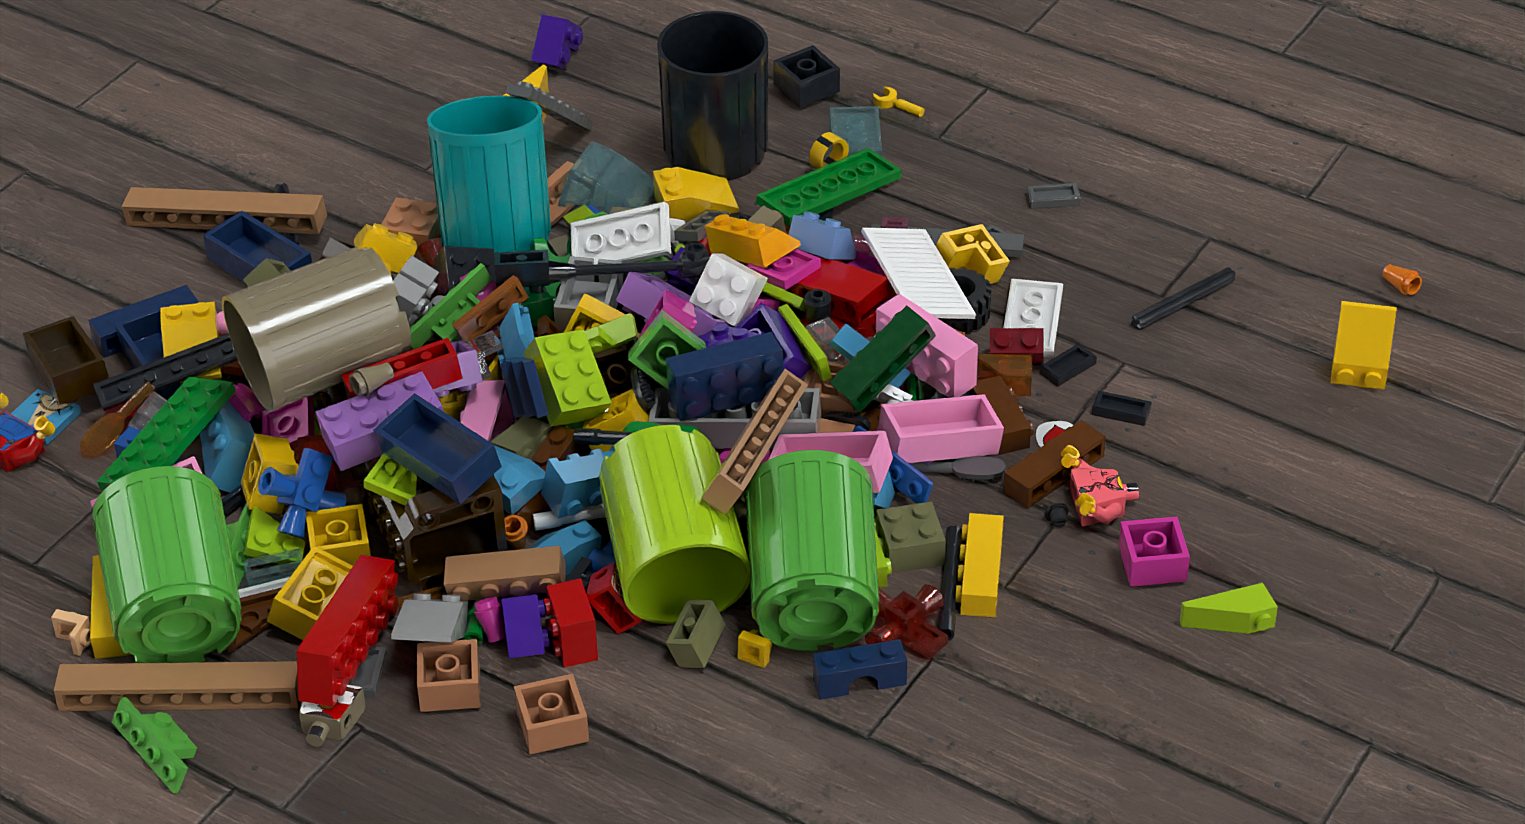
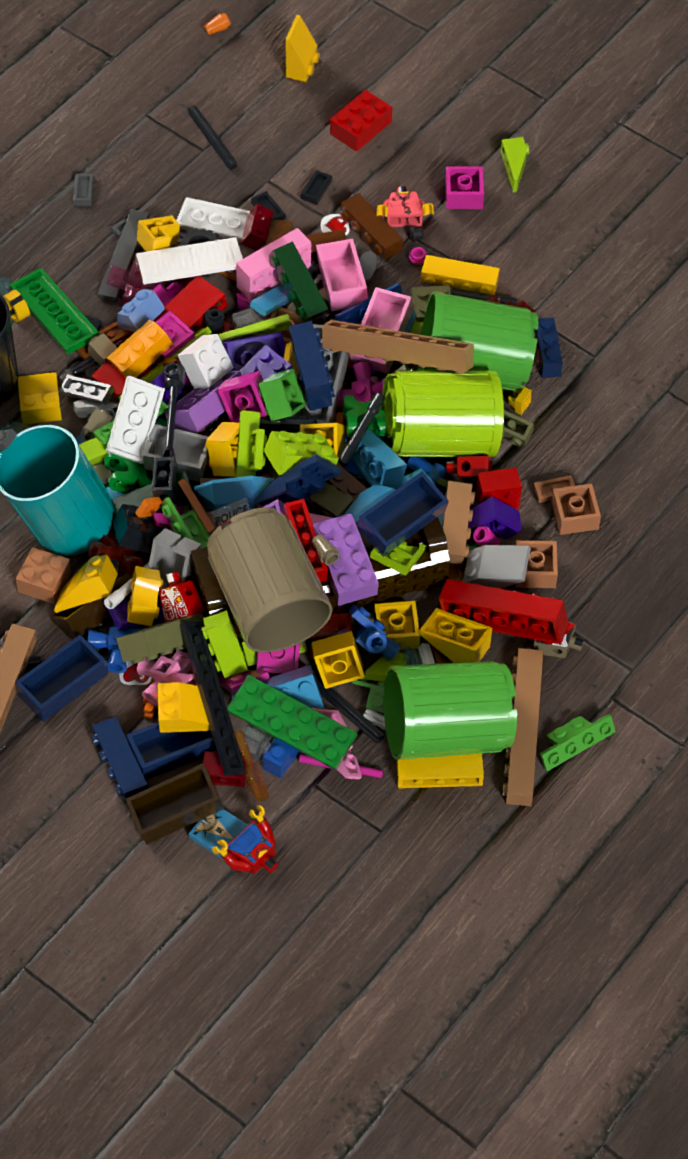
camera: 85 degrees left, 15 degrees up
(72, 628) = (464, 788): light nougat bracket -> none
(478, 256) = (148, 507): none -> orange tile
(596, 697) = (545, 488): none -> nougat plate
(1014, 520) = (417, 256): none -> dark pink plate
(1260, 434) = (361, 120): none -> red brick

